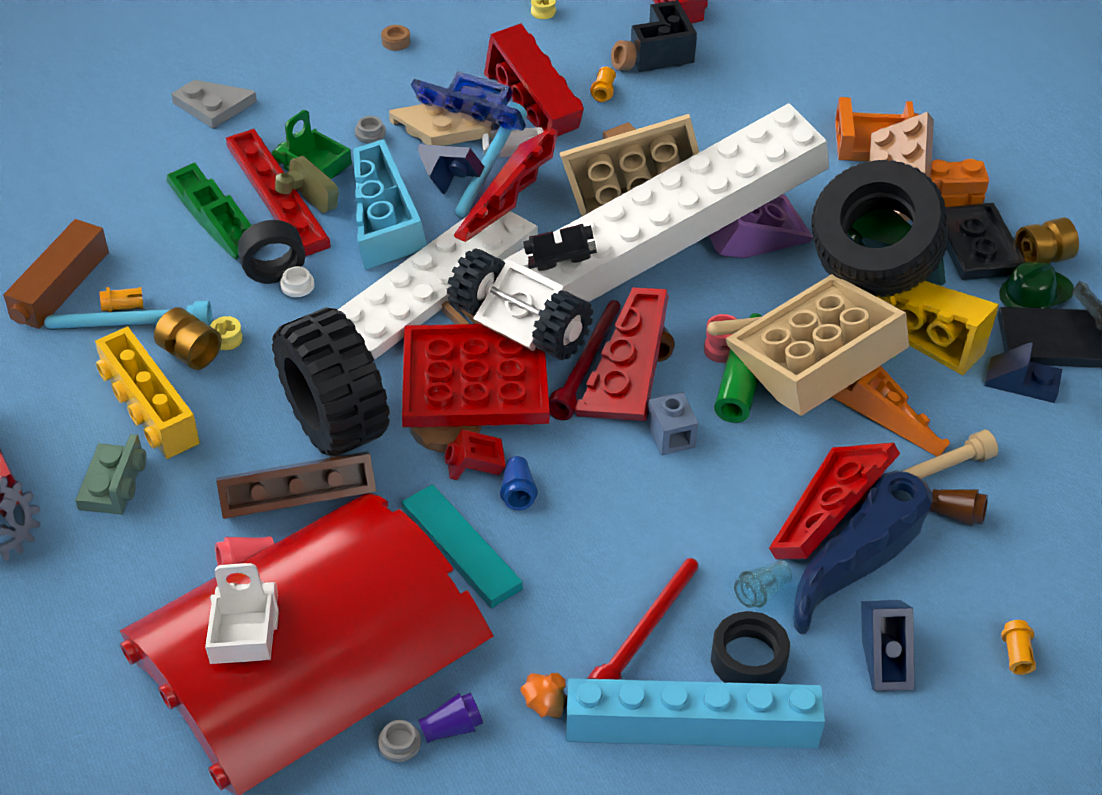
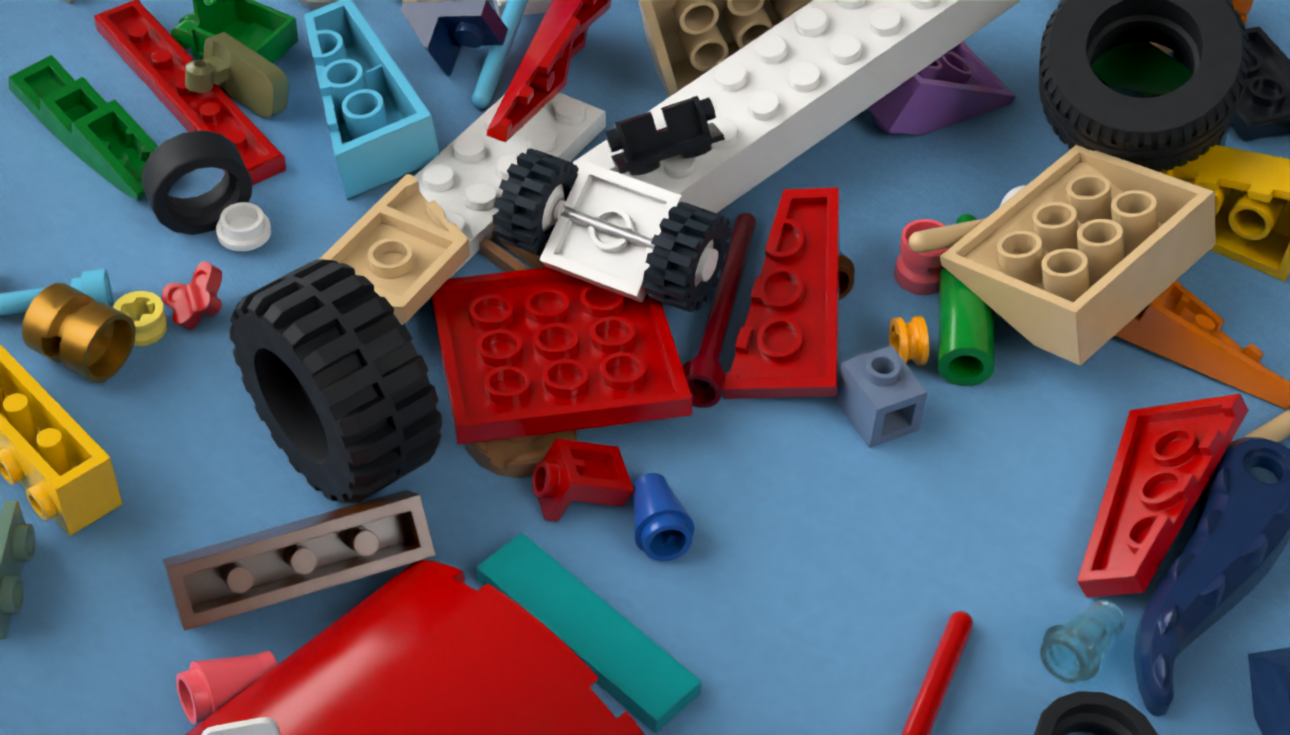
camera: 10 degrees left, 0 degrees up
(260, 324) = (195, 298): none -> piece
(386, 306) = (403, 248): none -> tan wing
(699, 391) = (910, 339): none -> light orange bush

